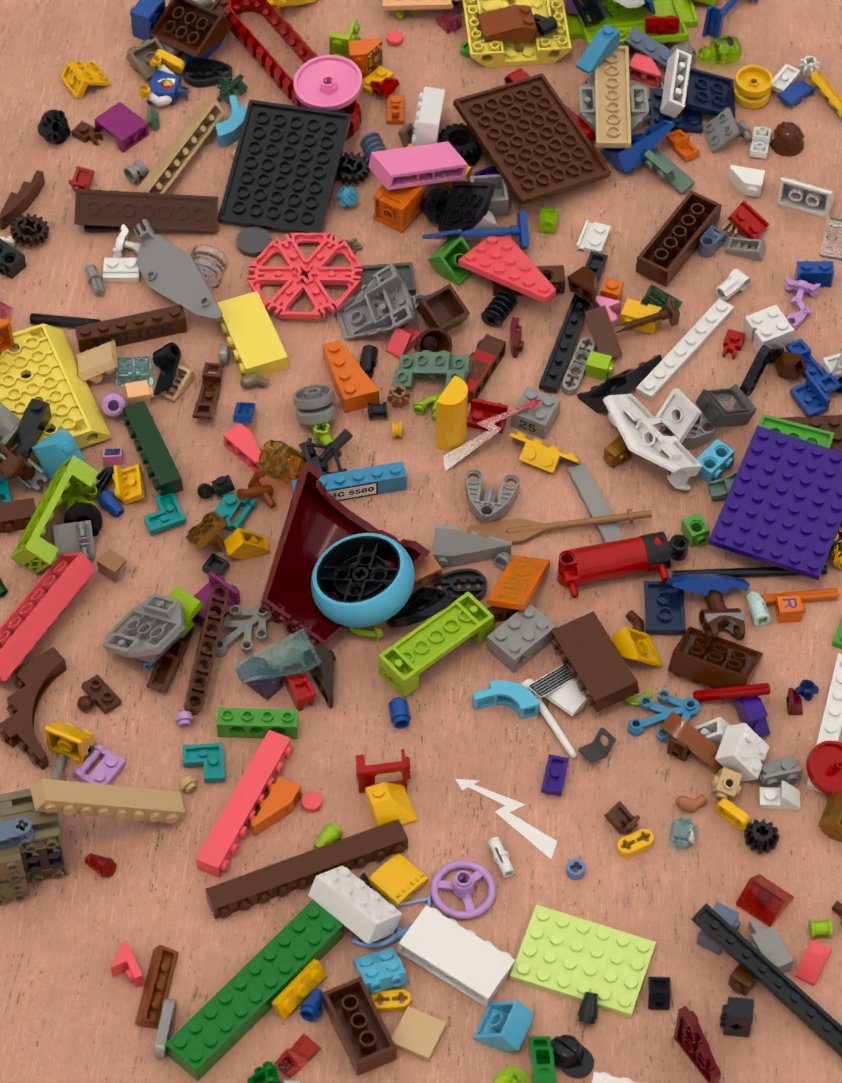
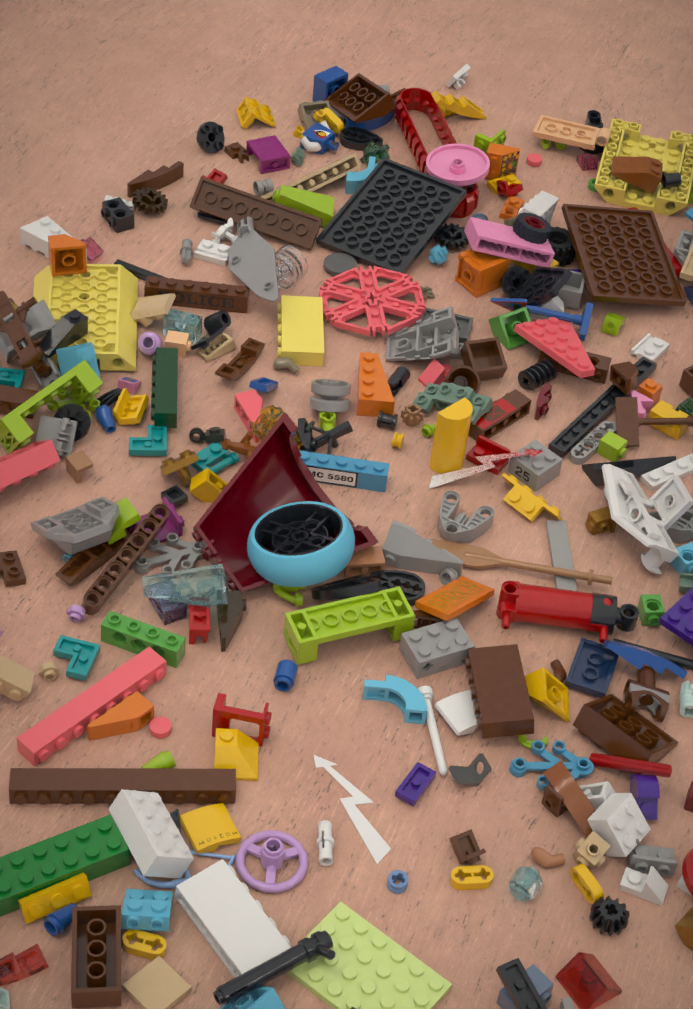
camera: 15 degrees right, 10 degrees down
(192, 180) = (306, 201): none -> lime slope
(224, 354) = (269, 337): light grey tile -> none
(435, 142) = (532, 228): none -> black wheel
(528, 959) = (305, 951): none -> black cylinder
(551, 681) = (448, 695): sticker -> none

